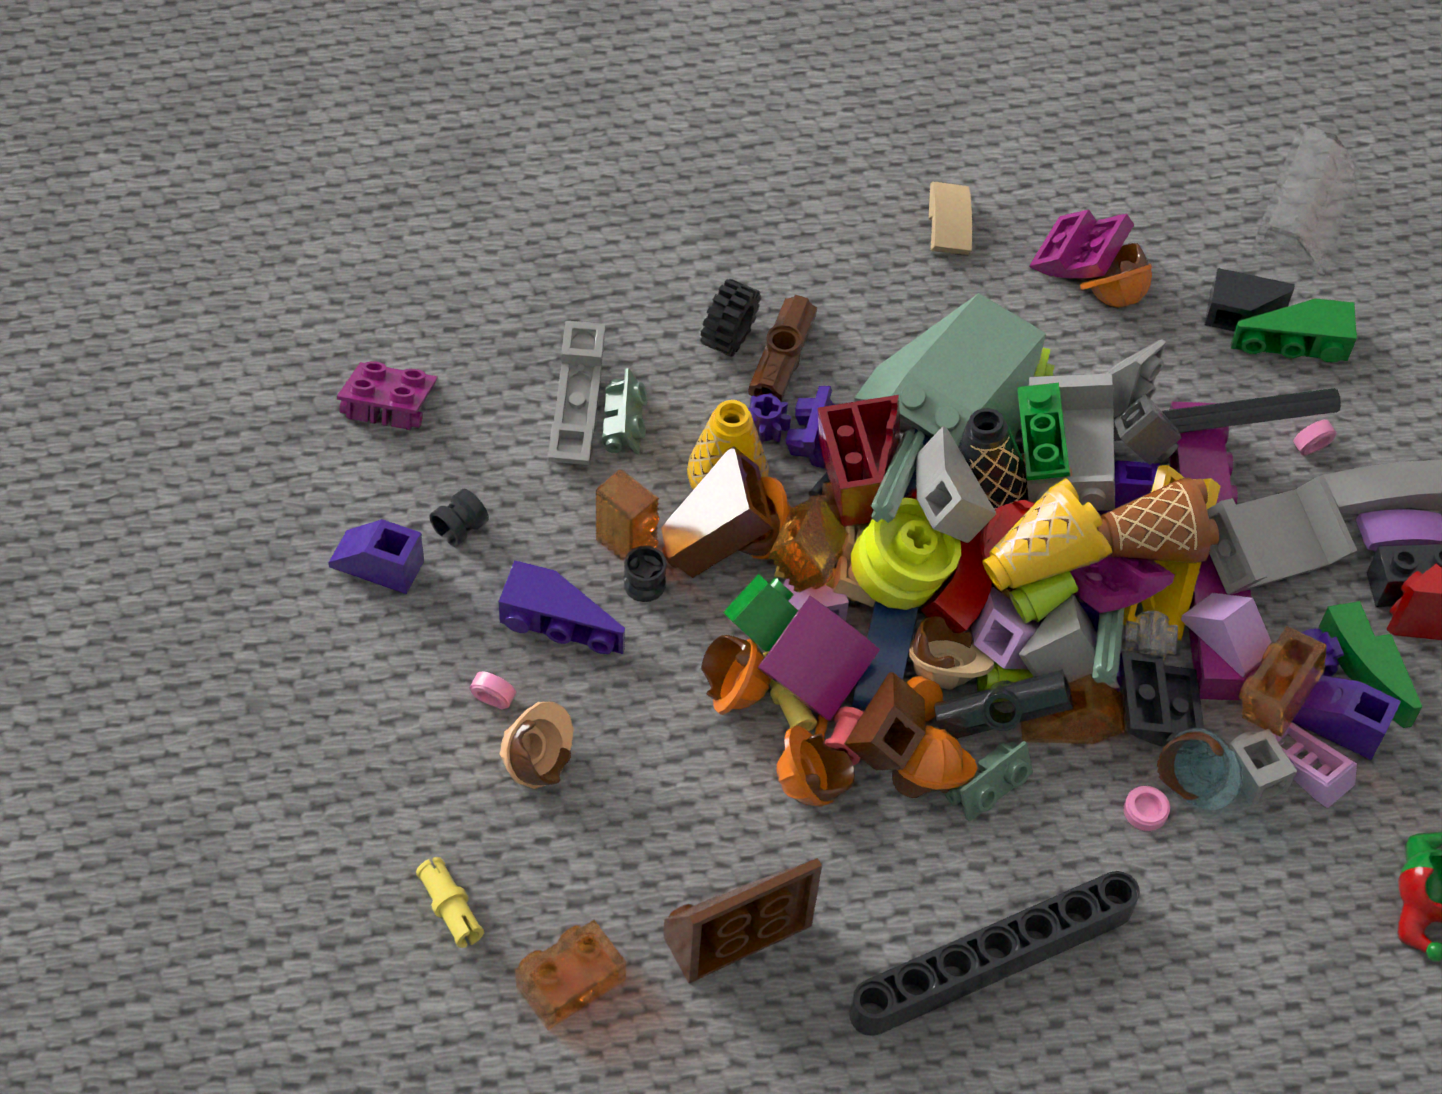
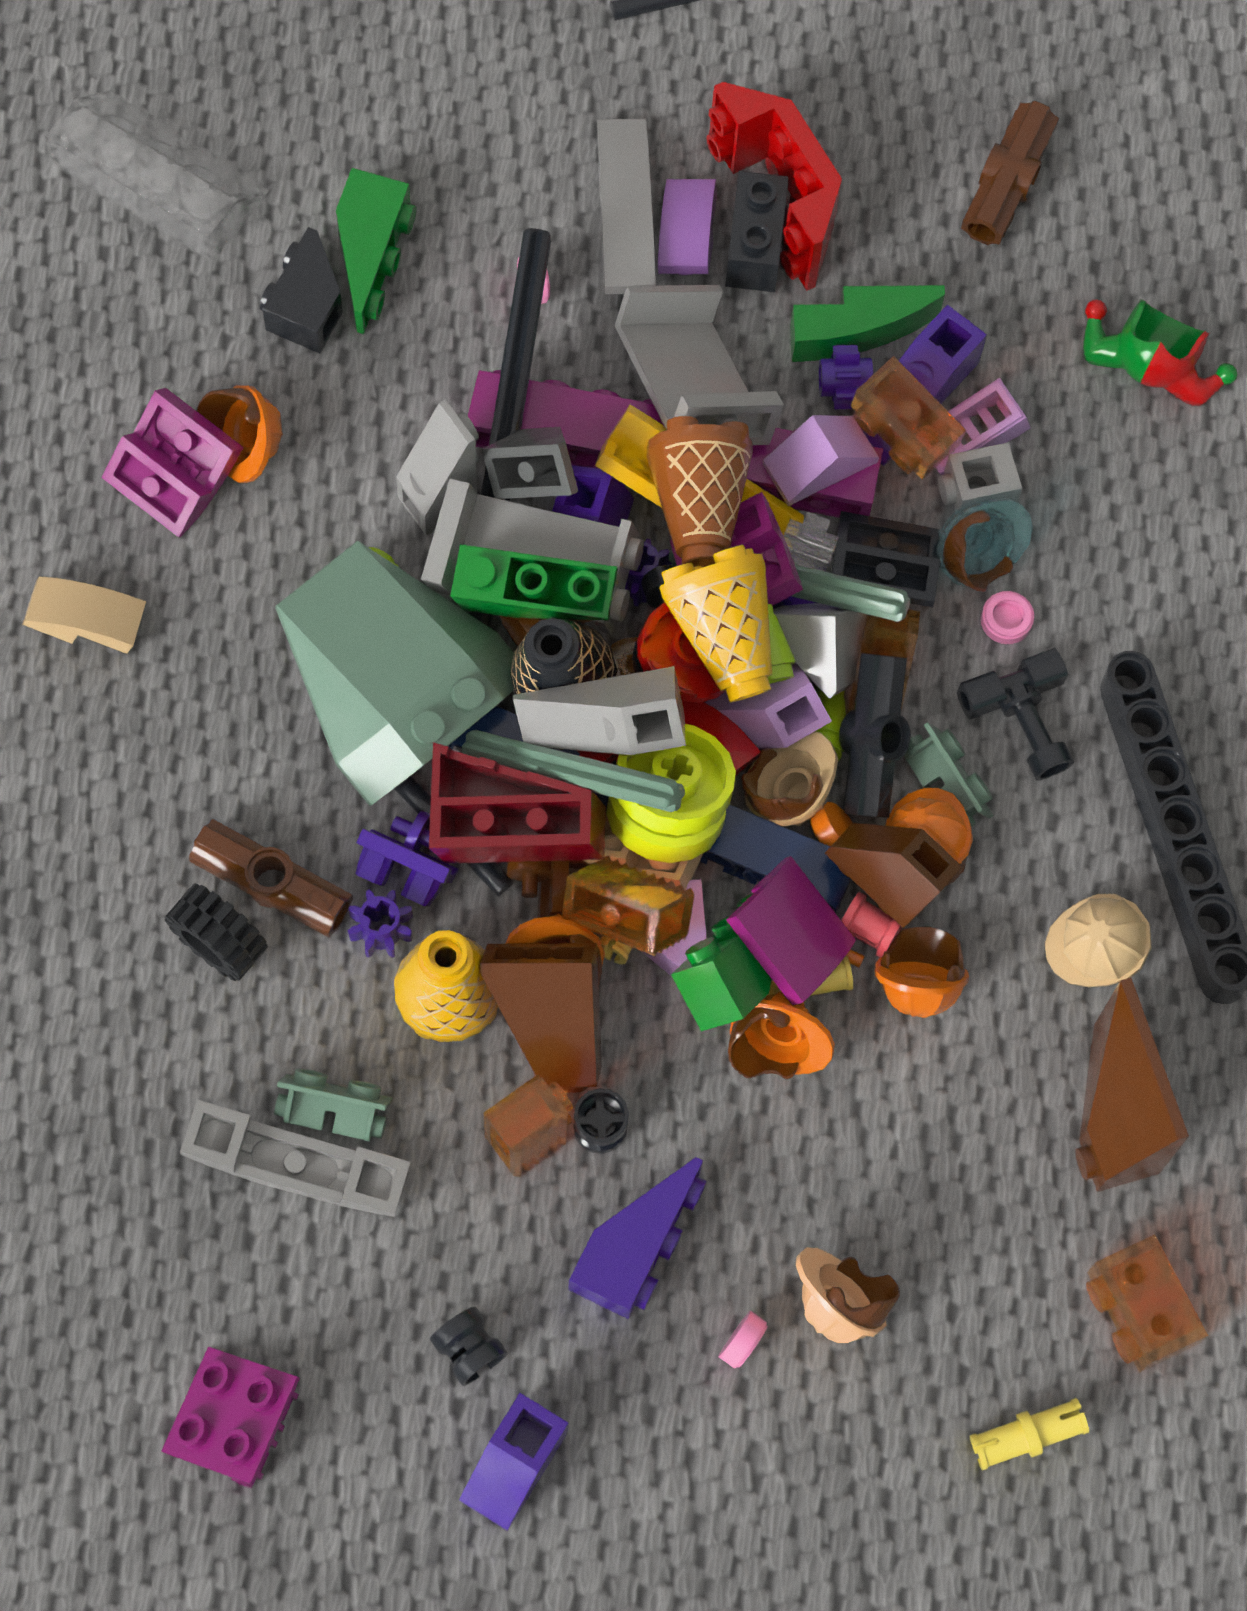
camera: 80 degrees left, 15 degrees up
(878, 910) = (1098, 941): none -> tan piece
(1075, 820) = (1019, 695): none -> black bar

